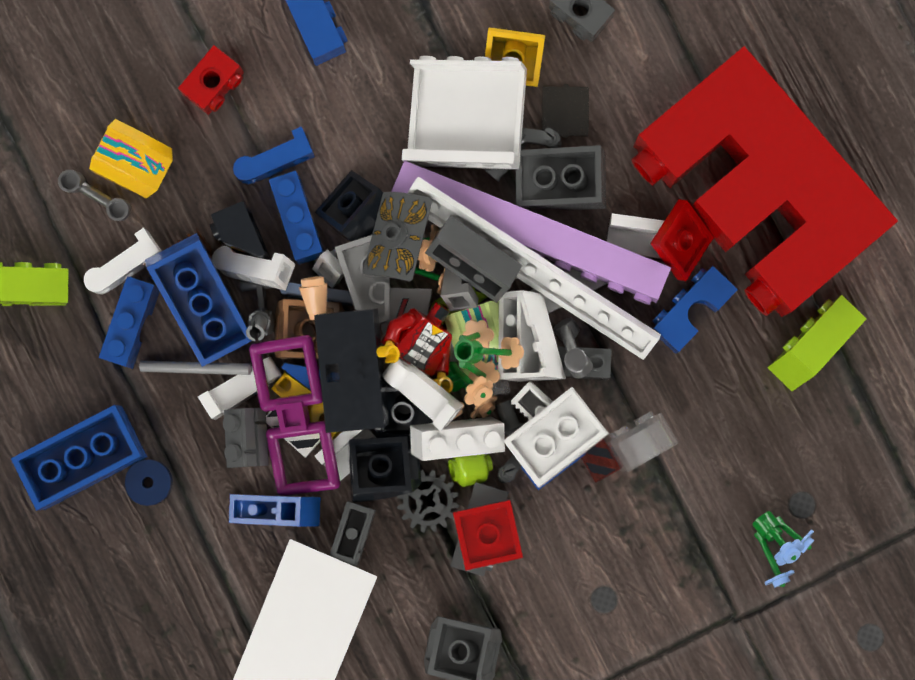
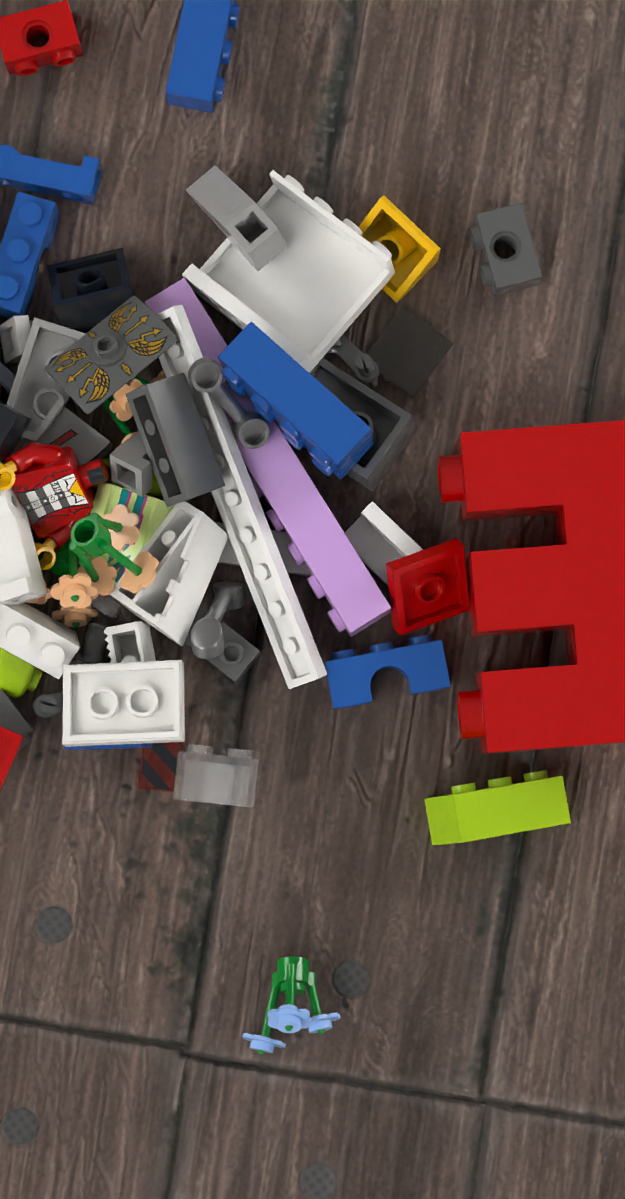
camera: 25 degrees right, 0 degrees up
(409, 102) = (238, 217): none -> light grey slope
(508, 220) = (247, 425): none -> flat silver bar
(529, 185) = (296, 401): none -> blue brick

